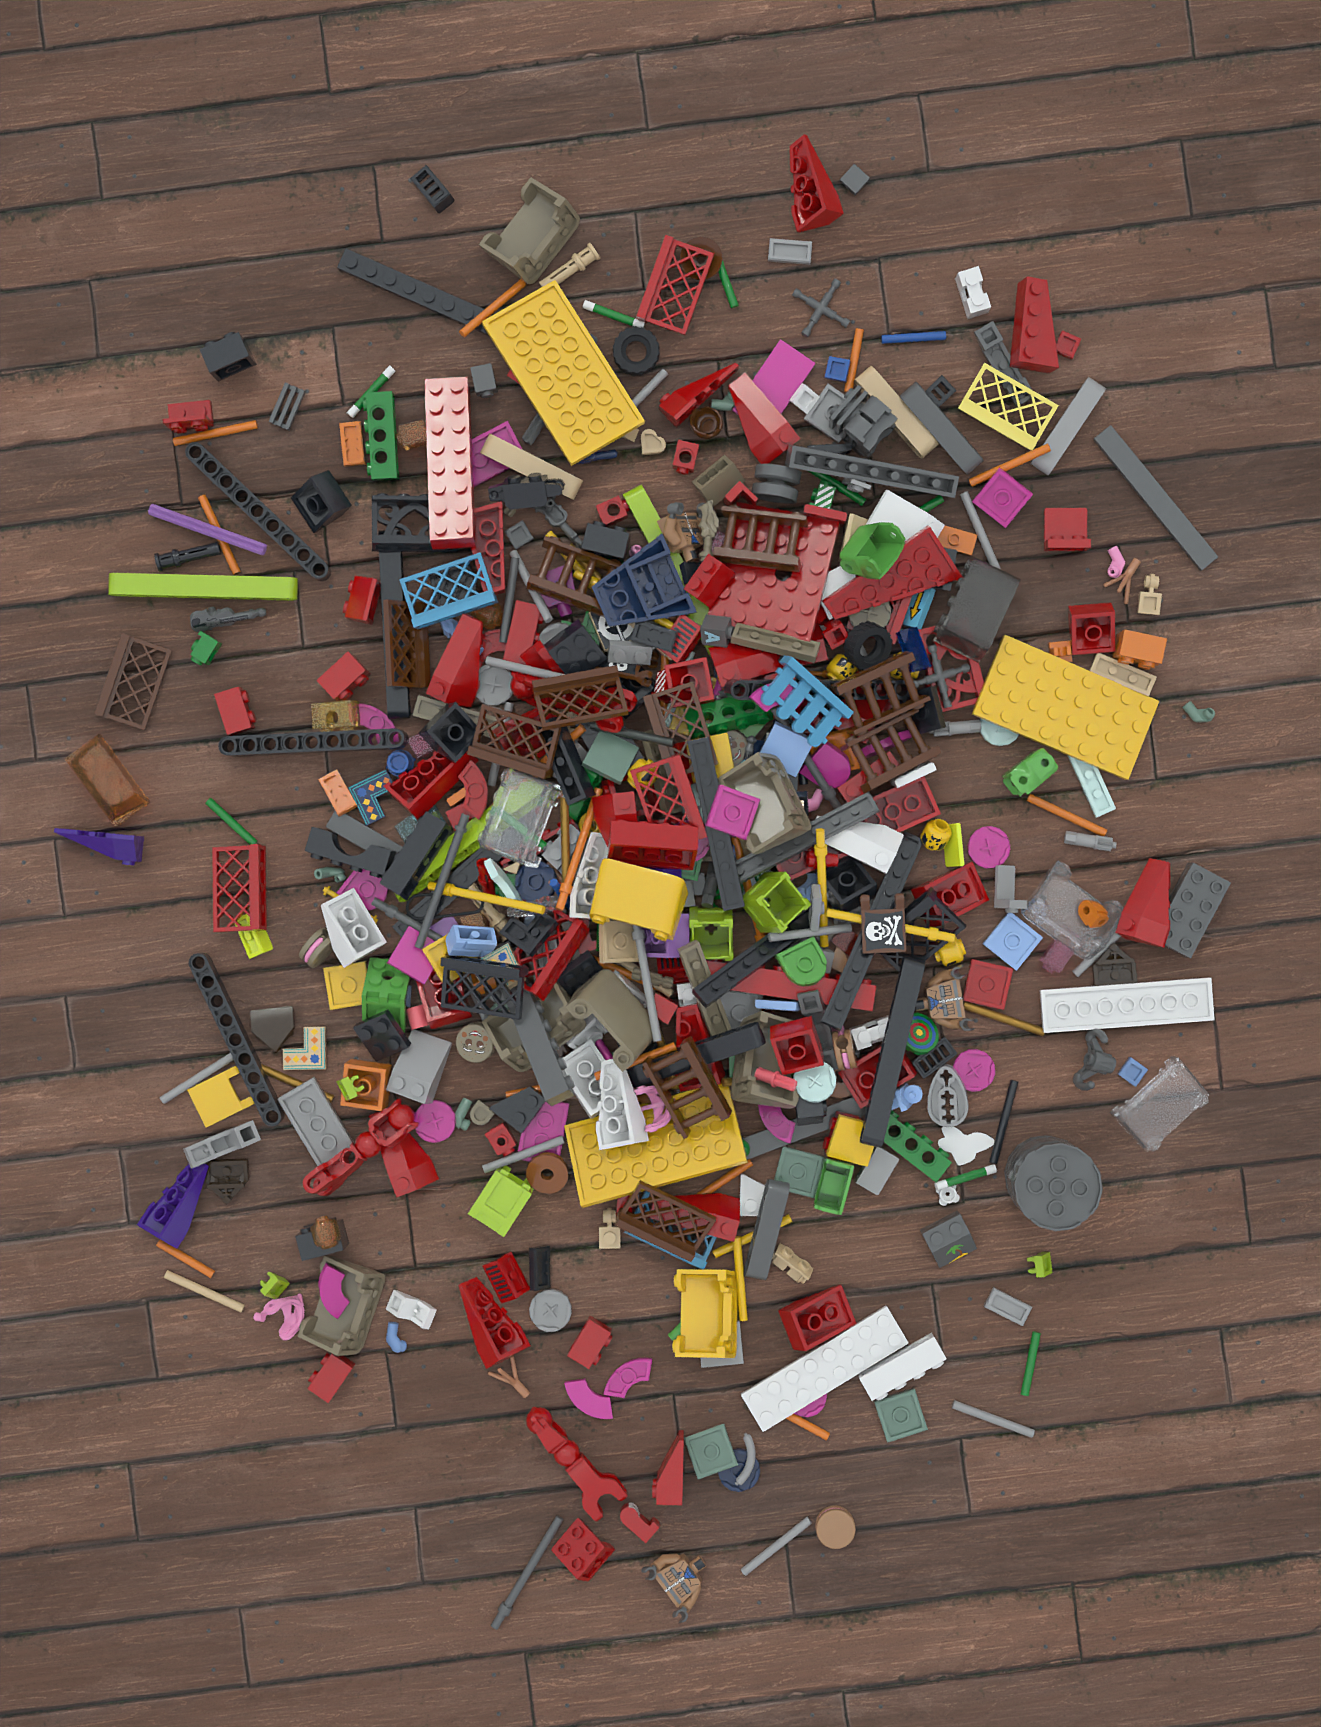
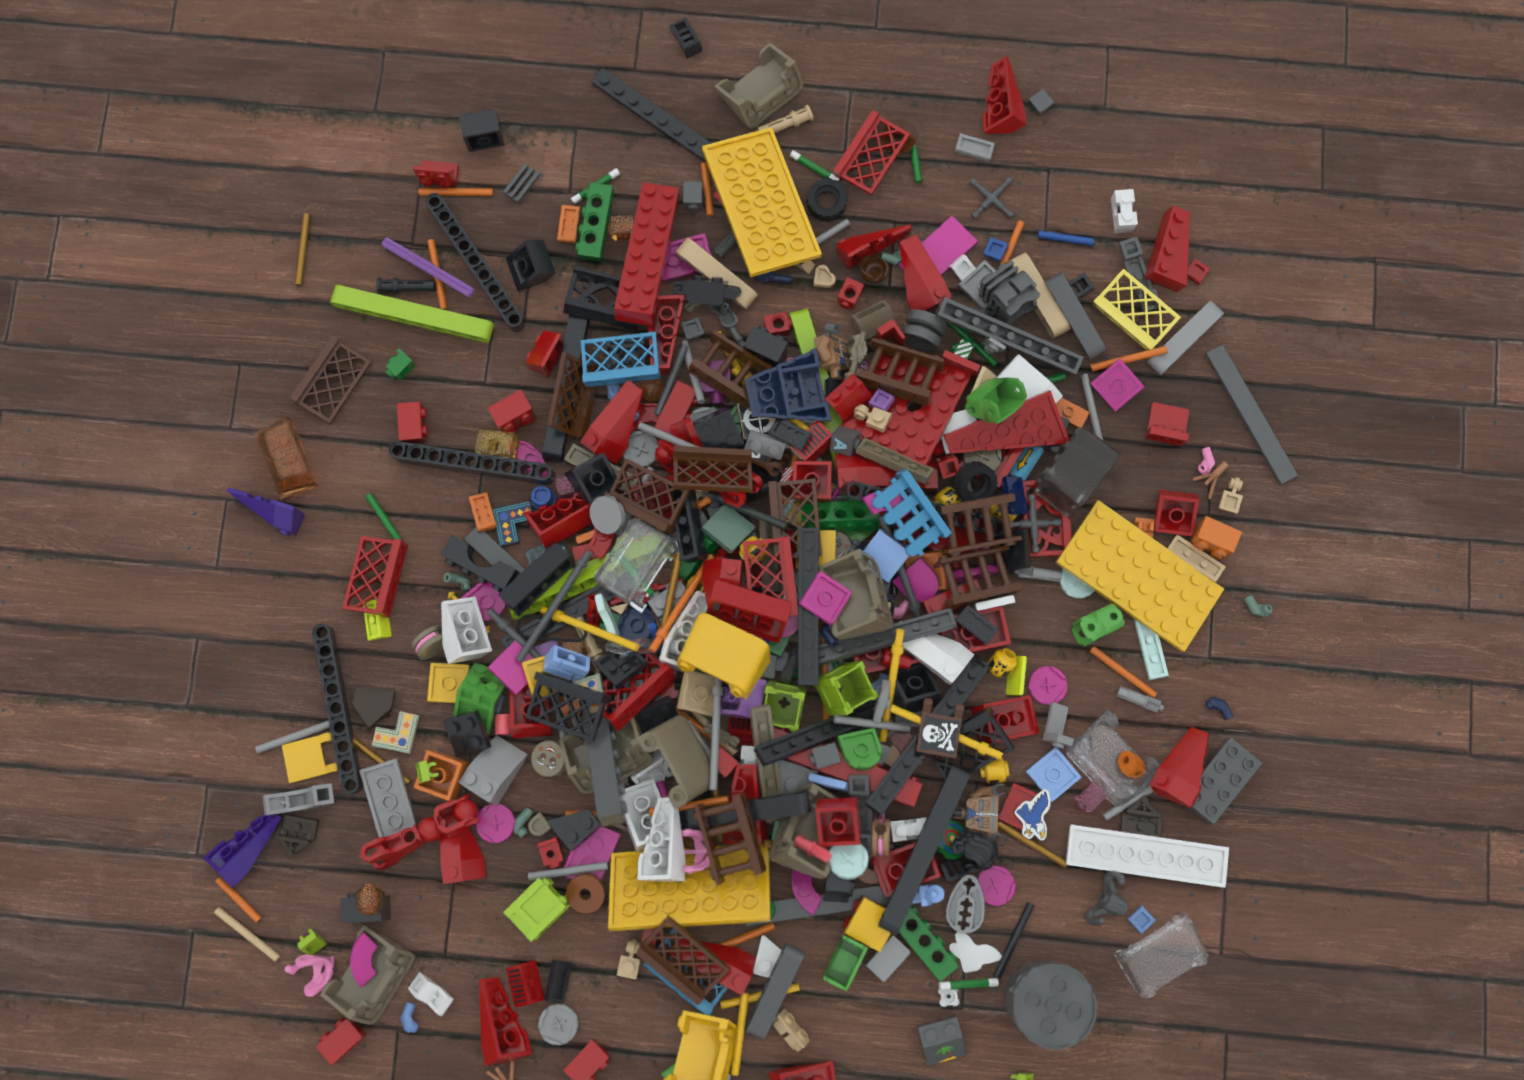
camera: 10 degrees right, 10 degrees down
(60, 536) = (302, 249): none -> pearl gold bar
(211, 618) = (413, 341): dark grey piece -> none
(476, 770) = (607, 514): none -> light grey tile
(487, 312) = (715, 138): orange bar -> none
(498, 368) = (707, 189): none -> orange bar
(741, 848) = (827, 634): none -> dark blue arm
(746, 576) = (881, 400): none -> medium lavender tile
(746, 599) = (877, 419): none -> tan plate
(767, 980) = (825, 756): none -> dark grey brick
(800, 1170) = (817, 943): sand green tile -> none
(900, 802) = (977, 624): none -> black plate
(947, 1039) = (977, 847): none -> black hair
(998, 989) = (1032, 815): none -> sticker
(1176, 828) = (1221, 705): none -> dark blue arm

